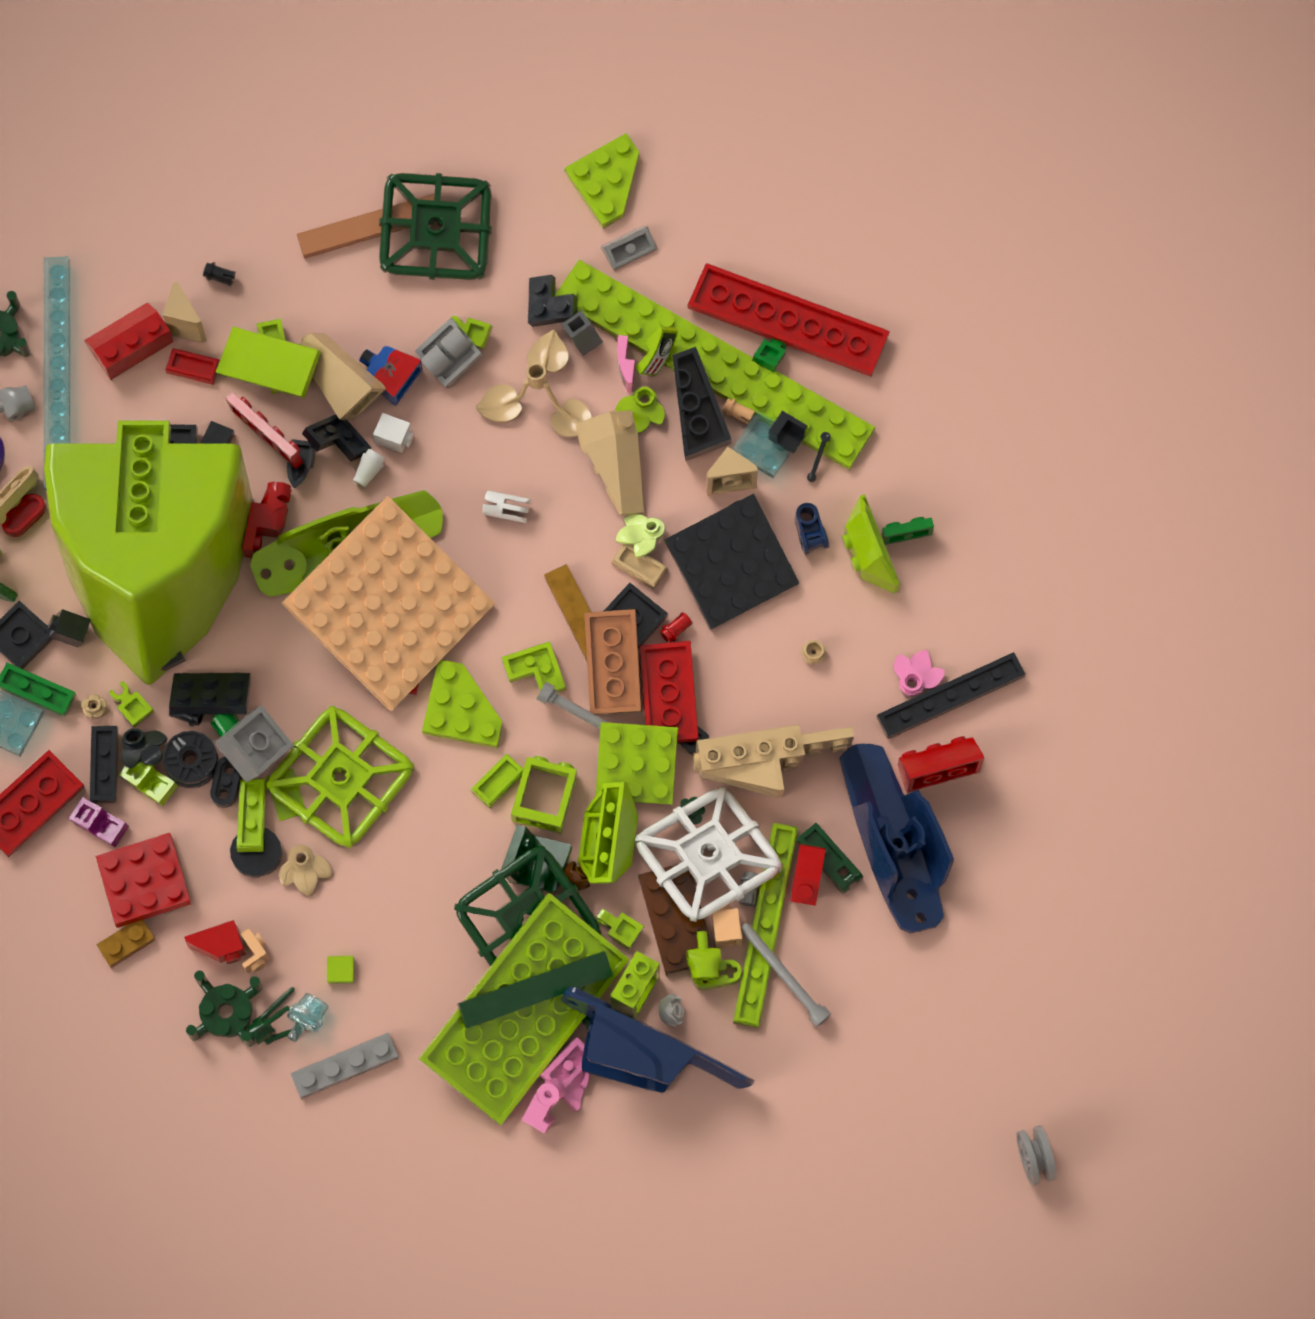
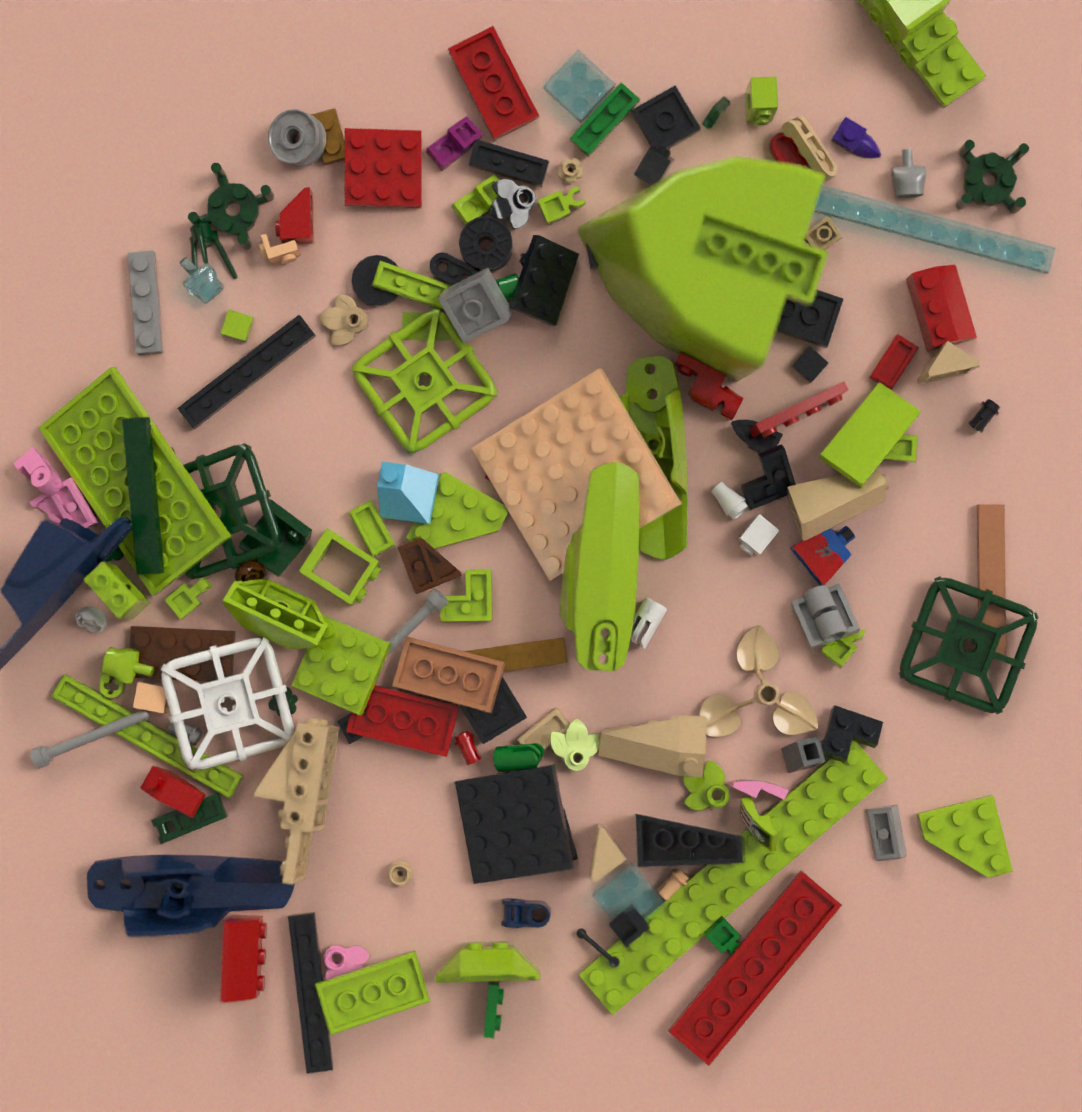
camera: 105 degrees right, 15 degrees up
(137, 983) = (283, 133): none -> light grey wheel
(383, 944) = (246, 372): none -> black plate
(454, 753) = (406, 493): none -> medium azure slope
(471, 548) = (603, 569): none -> lime piece
(517, 717) = (425, 565): none -> reddish brown wing
(668, 577) = (517, 757): none -> green arm
(930, 640) = (372, 992): none -> lime tile

